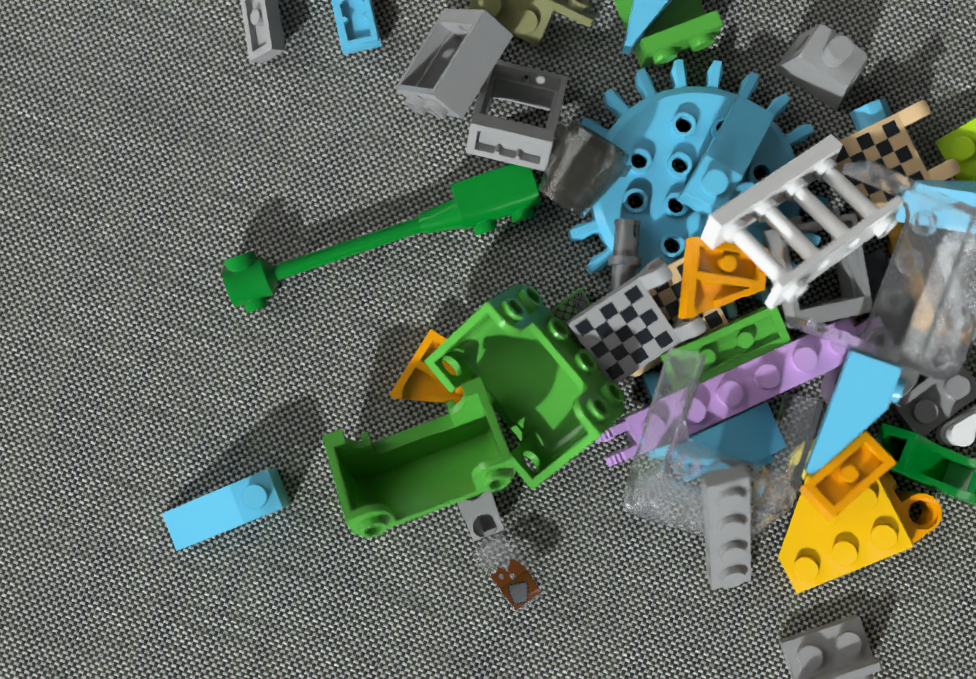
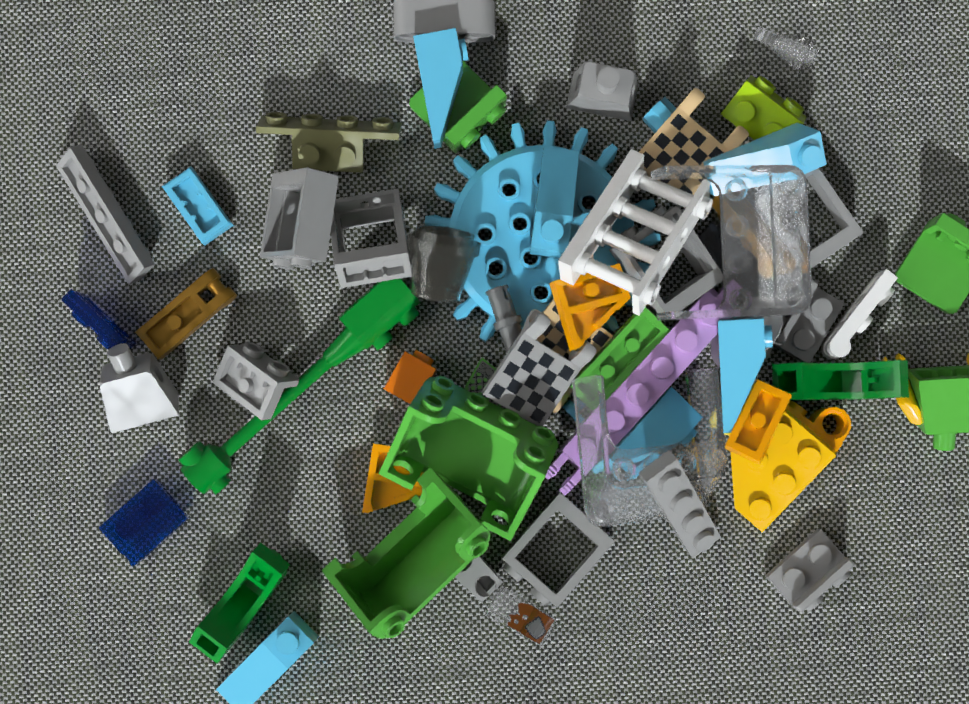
camera: 25 degrees left, 0 degrees up
(161, 310) = (144, 522): none -> clear blue plate
(197, 75) = (91, 315): none -> clear blue plate
(210, 169) = (136, 390): none -> torso
(224, 435) = (240, 603): none -> green arch
(294, 115) = (185, 314): none -> pearl gold plate
(336, 209) = (253, 378): none -> light grey bracket
(498, 274) = (410, 375): none -> orange brick
(613, 504) = (540, 590): none -> light grey window

